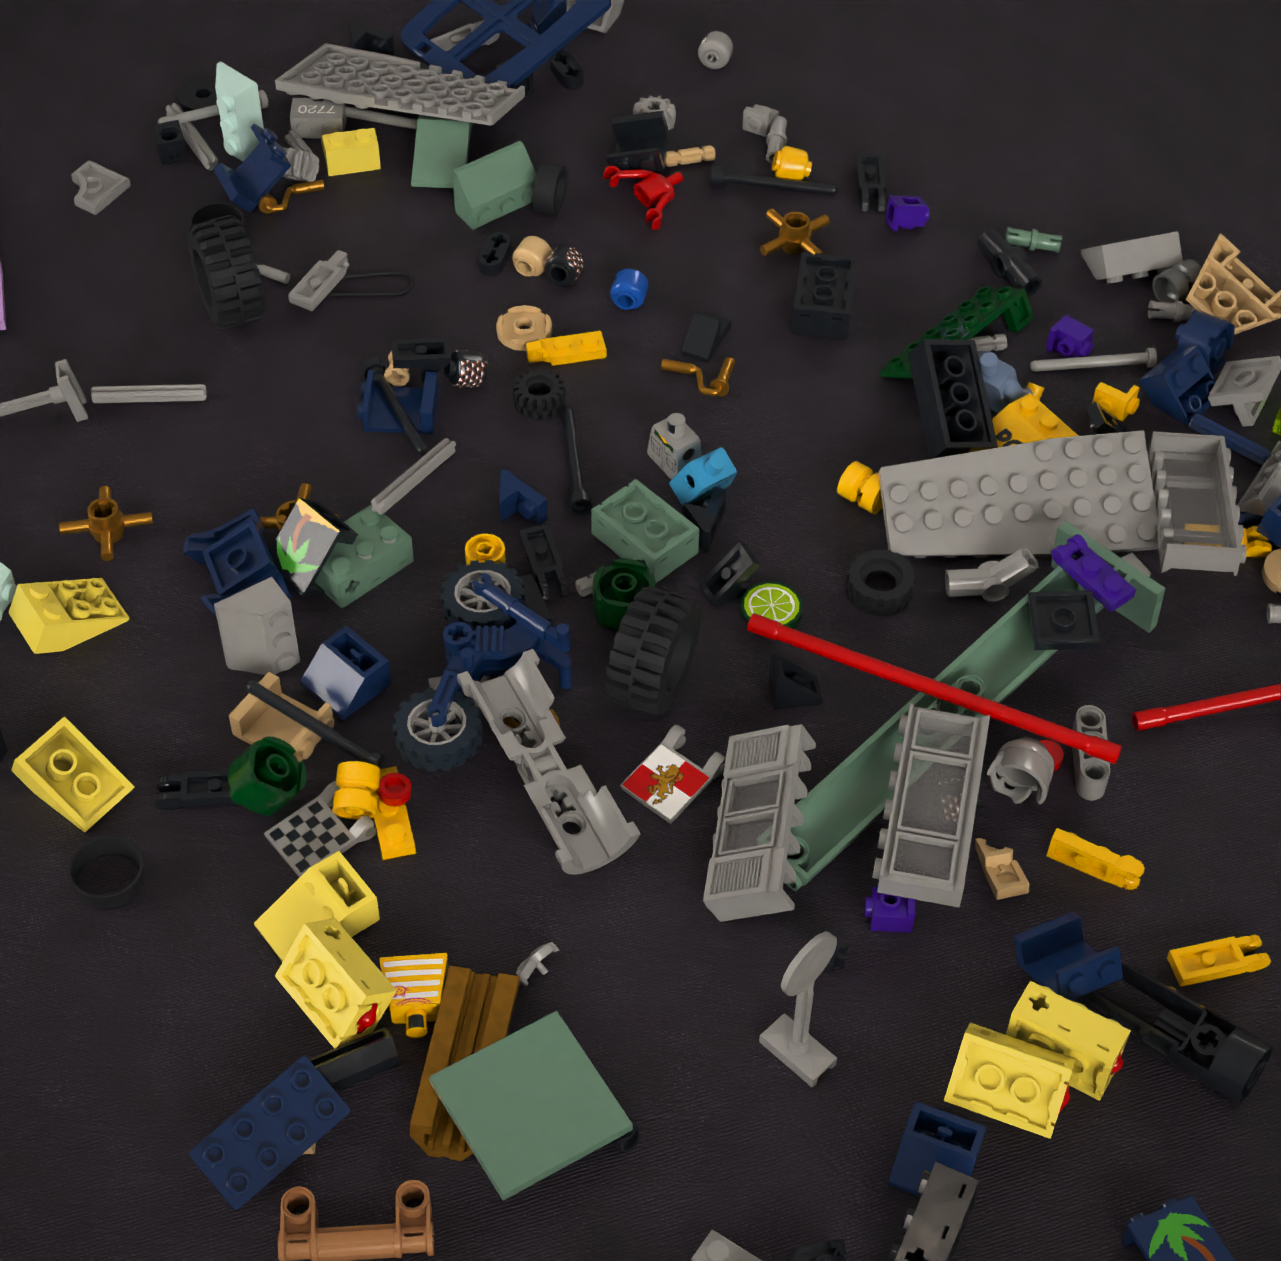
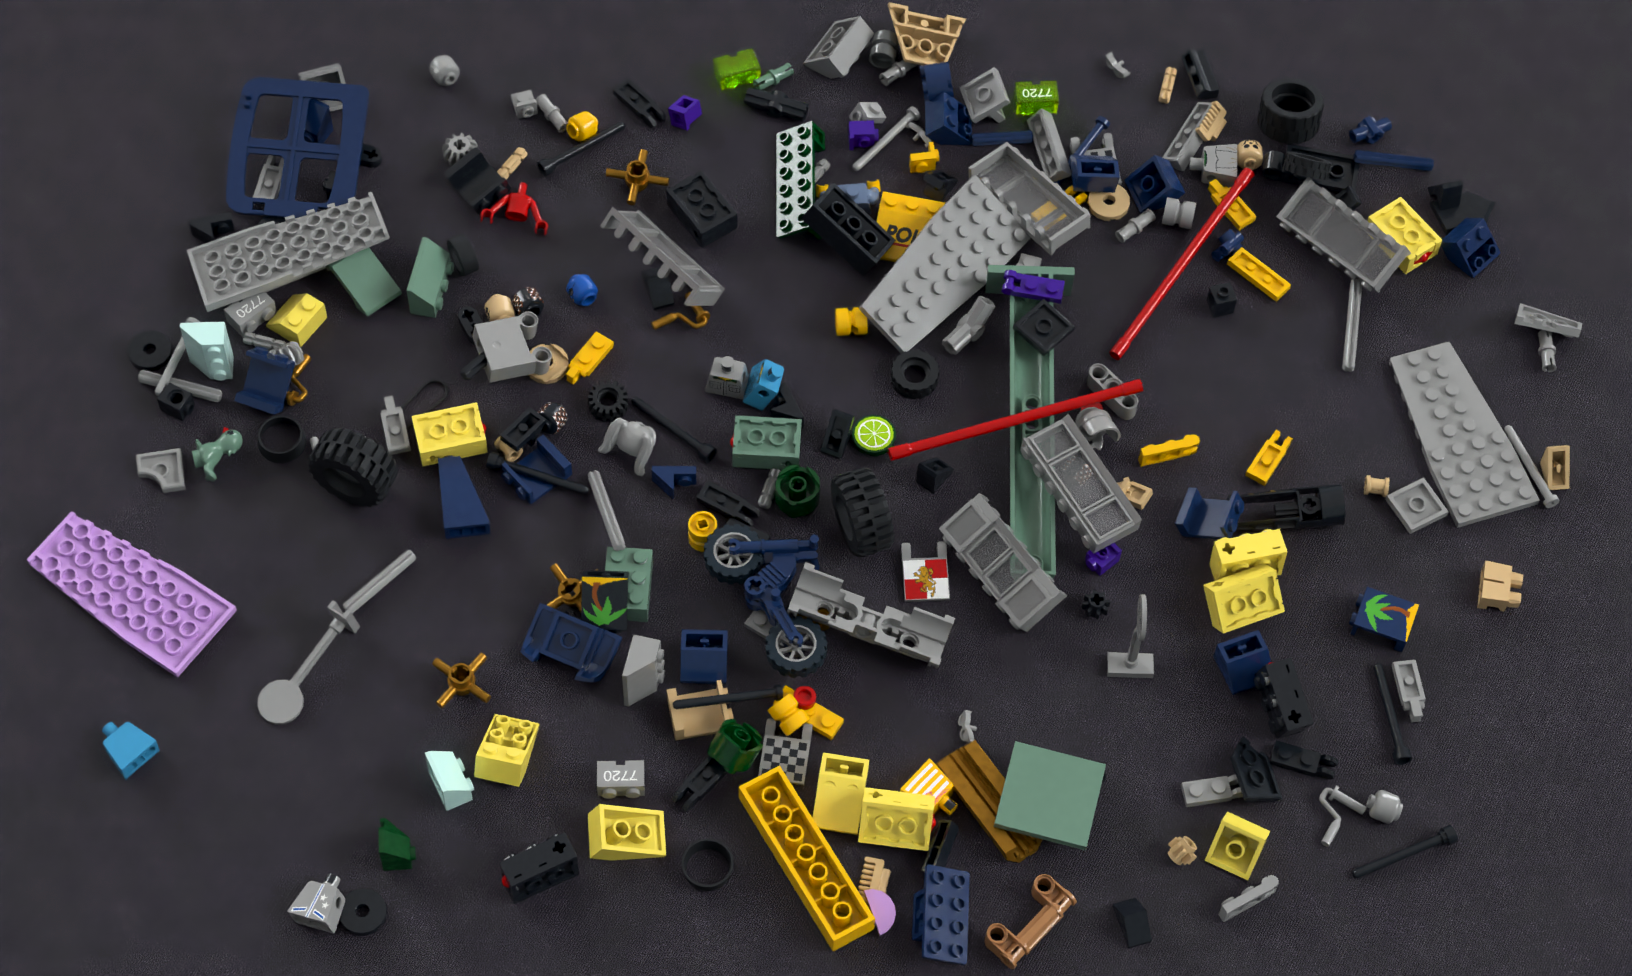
camera: 45 degrees left, 10 degrees up
(131, 725) = (620, 779): none -> light grey brick
(143, 197) = (210, 453): none -> sand green animal
(200, 950) = (806, 858): none -> yellow brick
(217, 1070) = (881, 908): none -> lavender tile
(252, 1041) = (880, 877): none -> tan piece
(299, 377) = (460, 502): none -> dark blue slope
(356, 316) = (450, 432): none -> light yellow piece
(487, 282) = (505, 351): none -> light grey piece
(517, 437) = (631, 438): none -> light grey hair
(738, 305) = (704, 287): none -> light grey window
(1001, 210) = (737, 69): none -> clear neon green brick
(1105, 327) = (868, 111): none -> light grey bracket
(1139, 372) = (920, 132): none -> light grey piece

